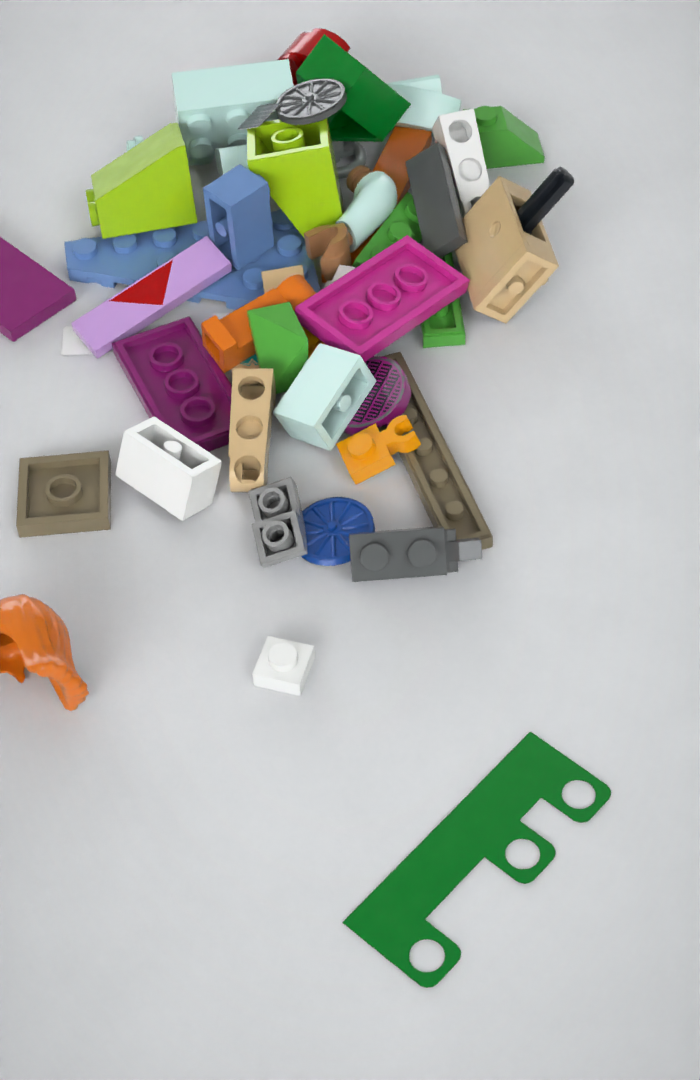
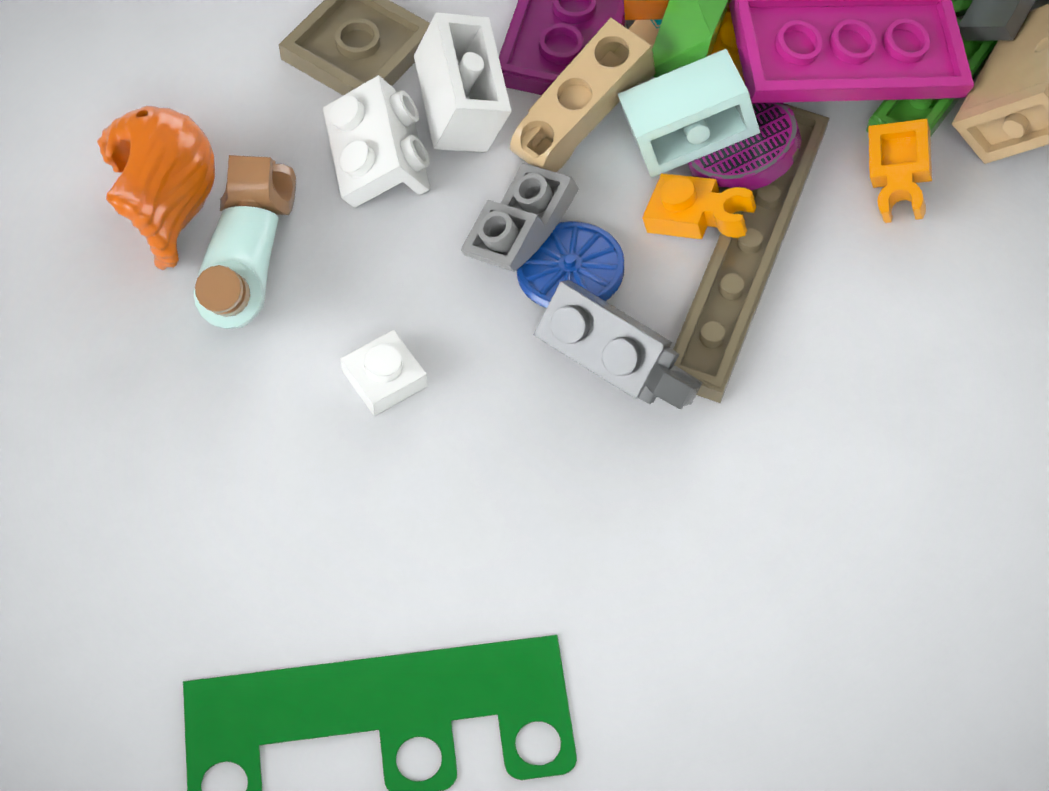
camera: 35 degrees right, 10 degrees up
(125, 664) = (238, 256): none -> piece
(140, 542) = (375, 142): none -> white bracket
(466, 348) = (897, 162): none -> light orange plate

